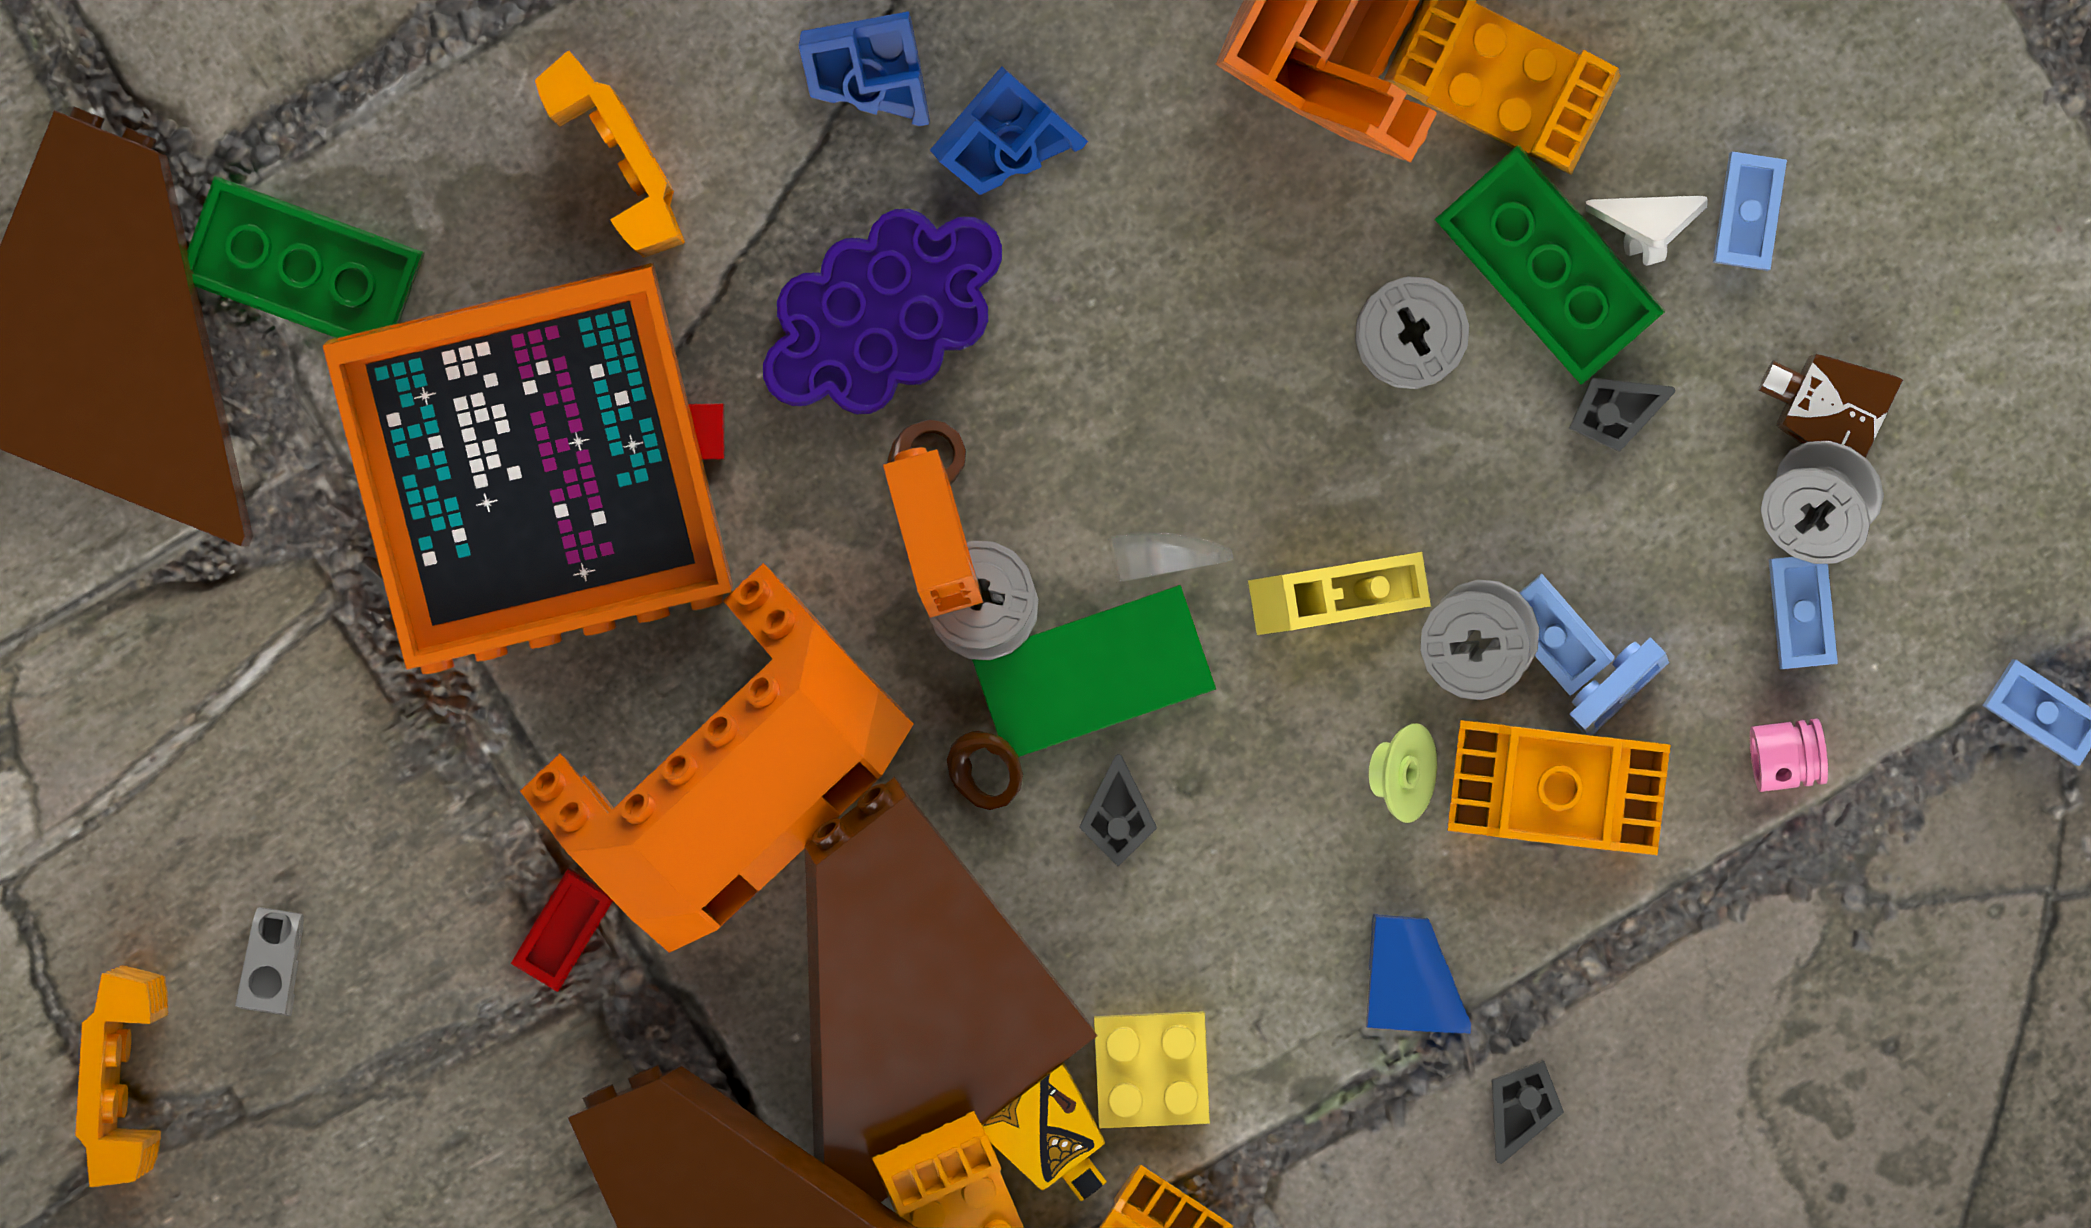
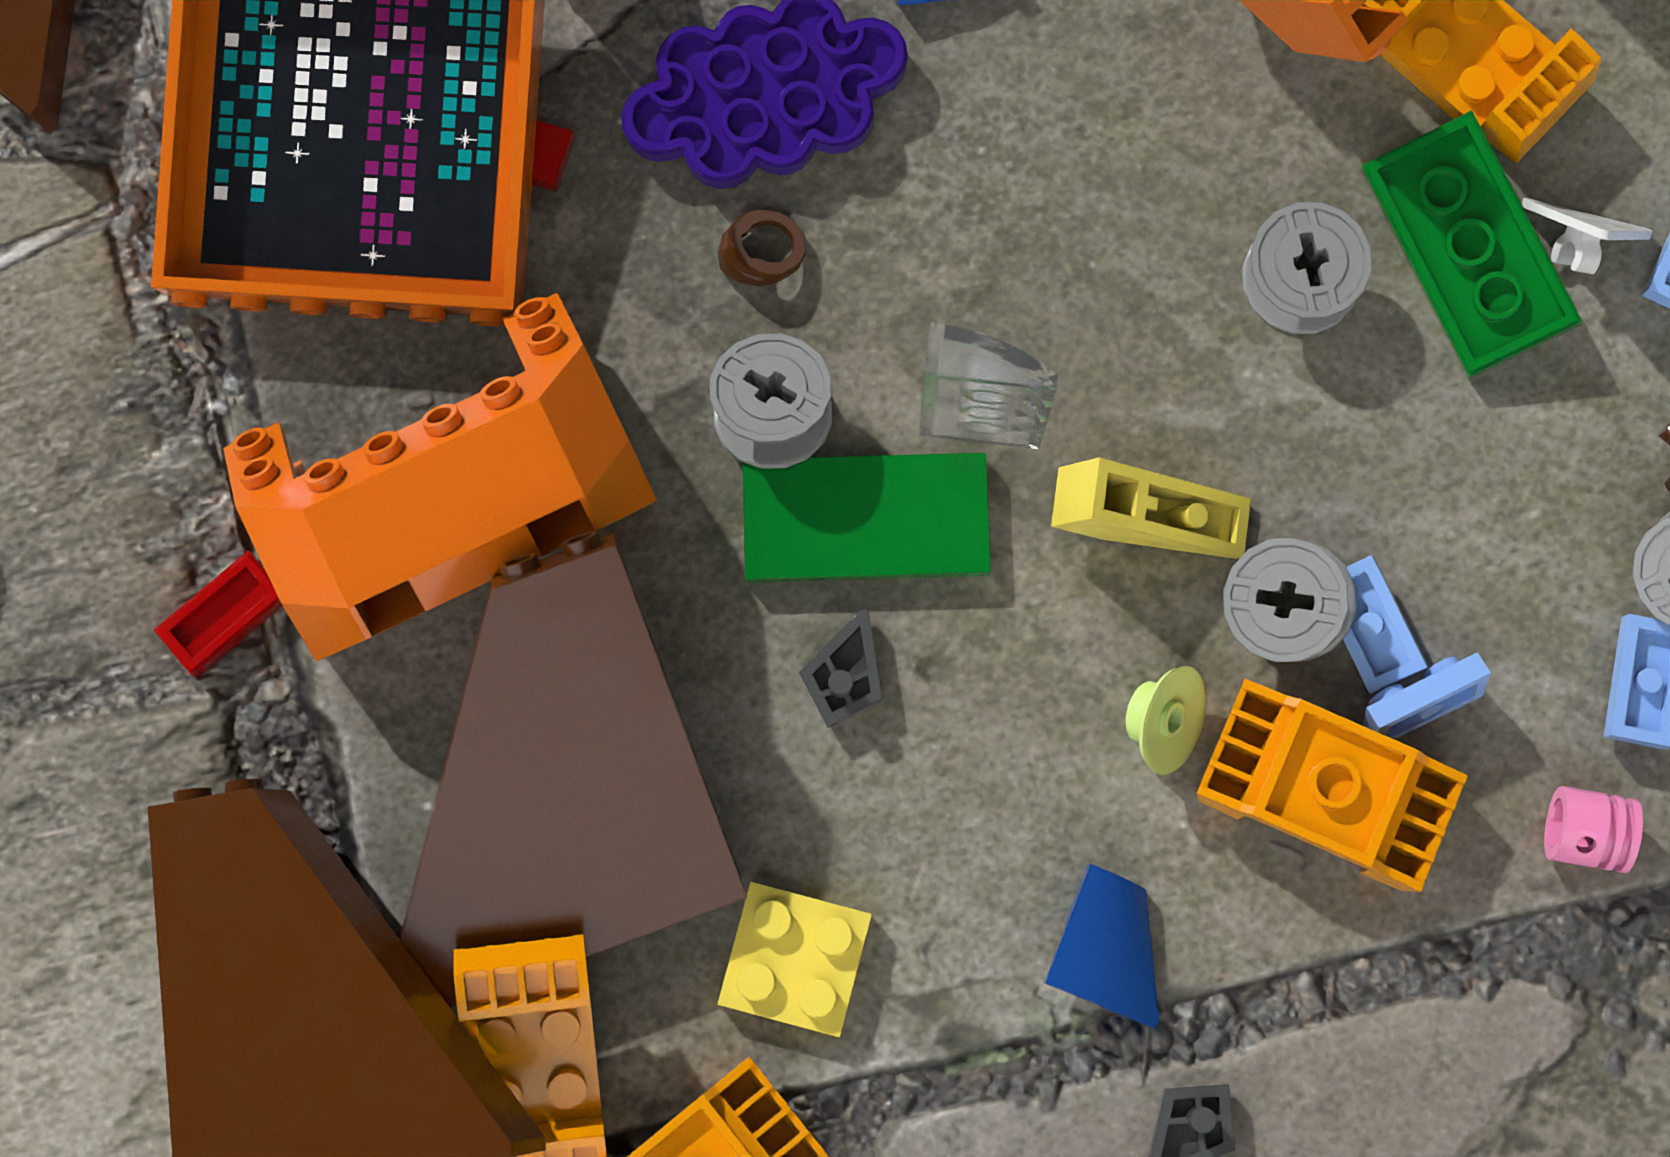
camera: 25 degrees right, 10 degrees down
(932, 531) = (739, 297): orange window -> none
(961, 768) = (693, 575): reddish brown piece -> none
(1050, 1134) = (661, 991): yellow torso -> none
(1617, 410) = (1501, 414): dark grey piece -> none

